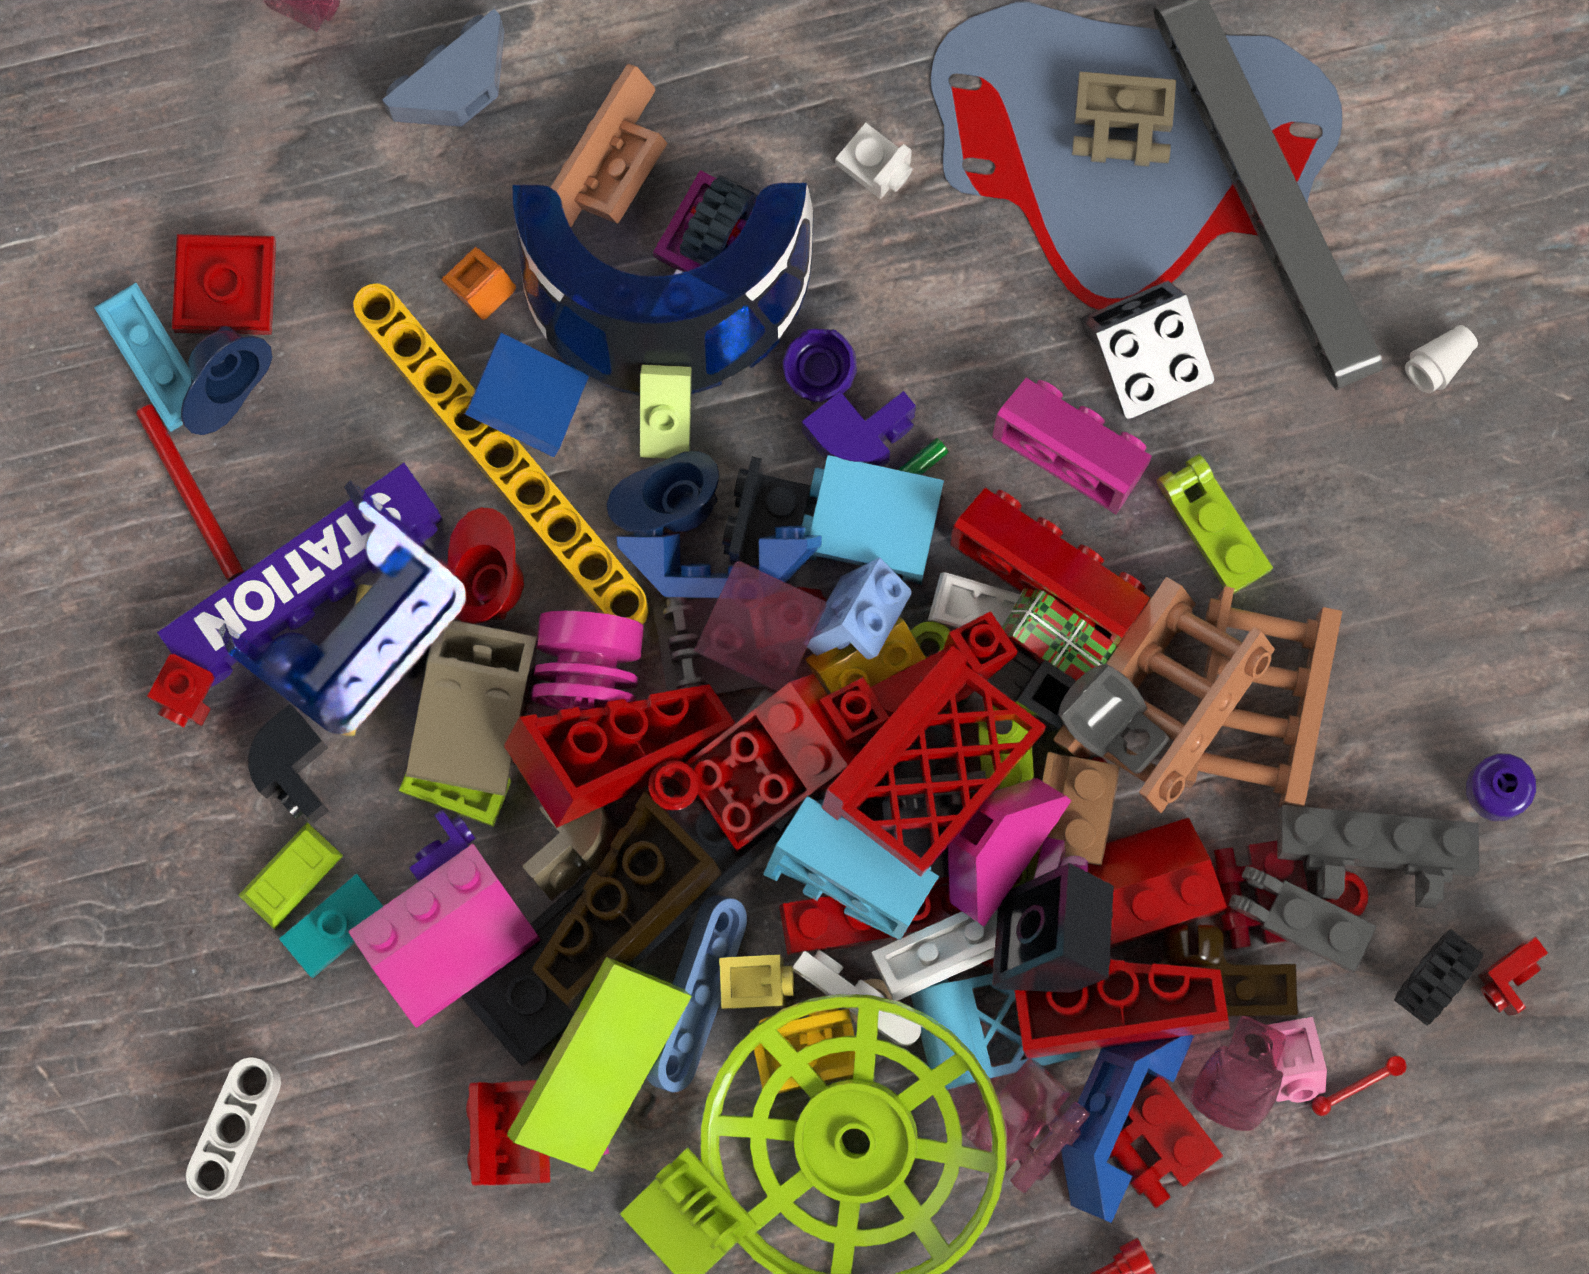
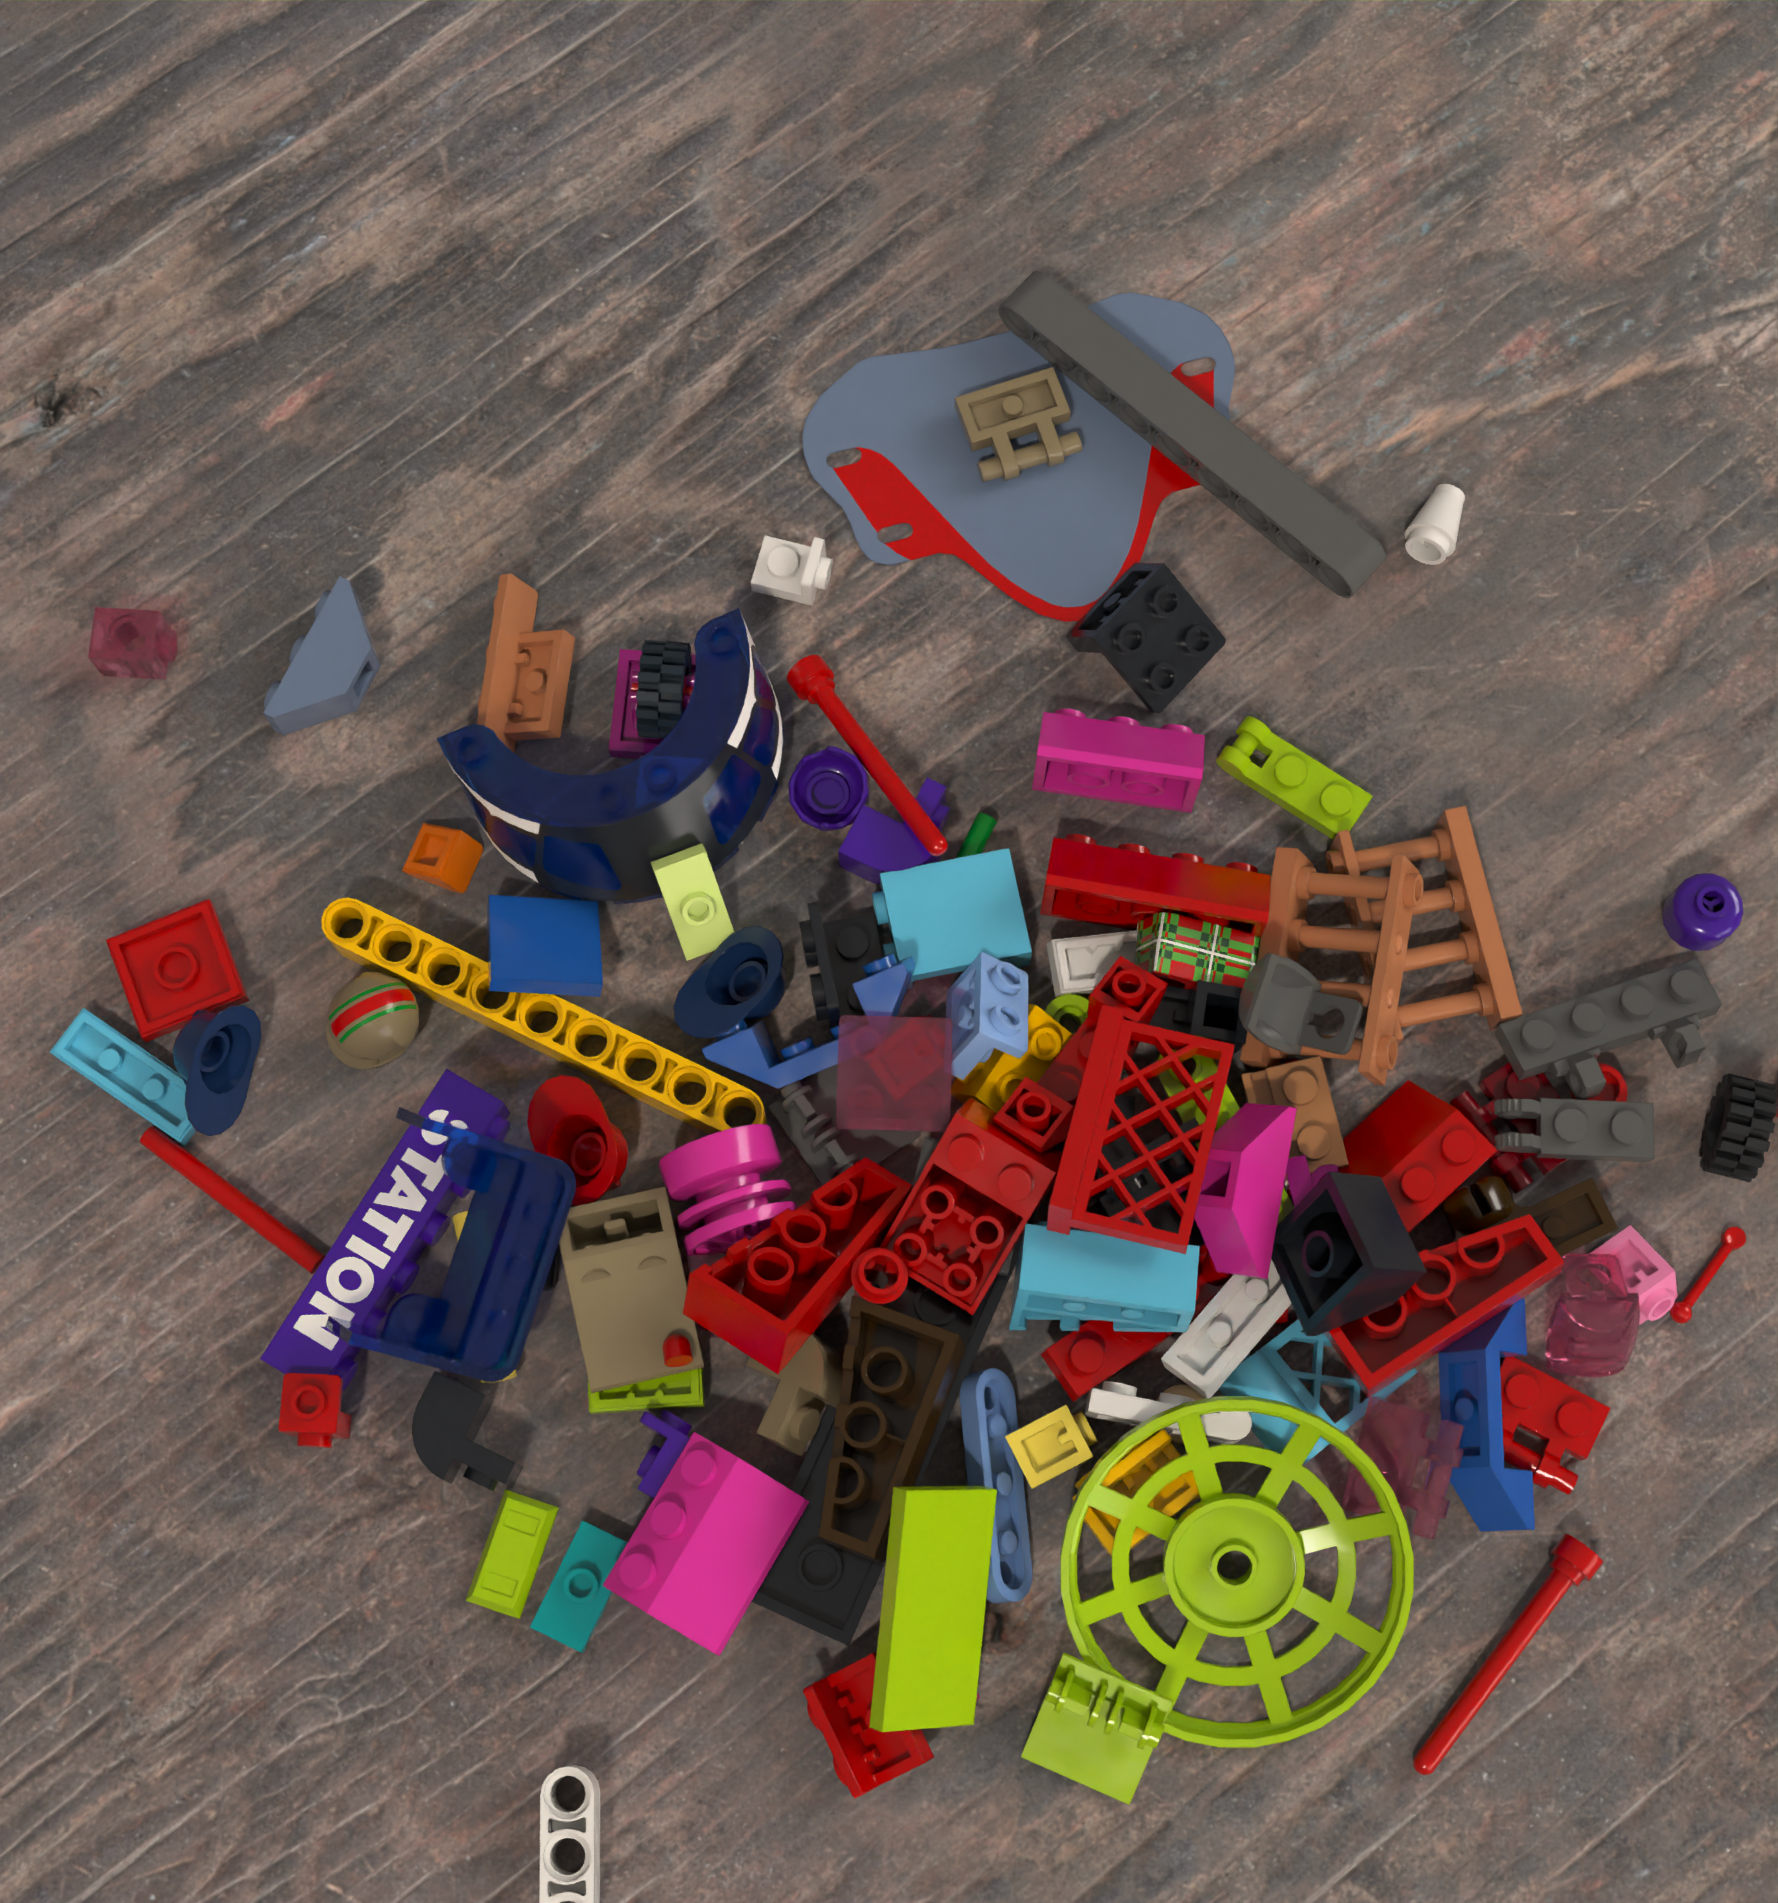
camera: 25 degrees left, 5 degrees down
(362, 395) = (372, 1020): none -> dark tan helmet
(487, 773) = (677, 1351): none -> red piece
(849, 266) = (814, 682): none -> red piece

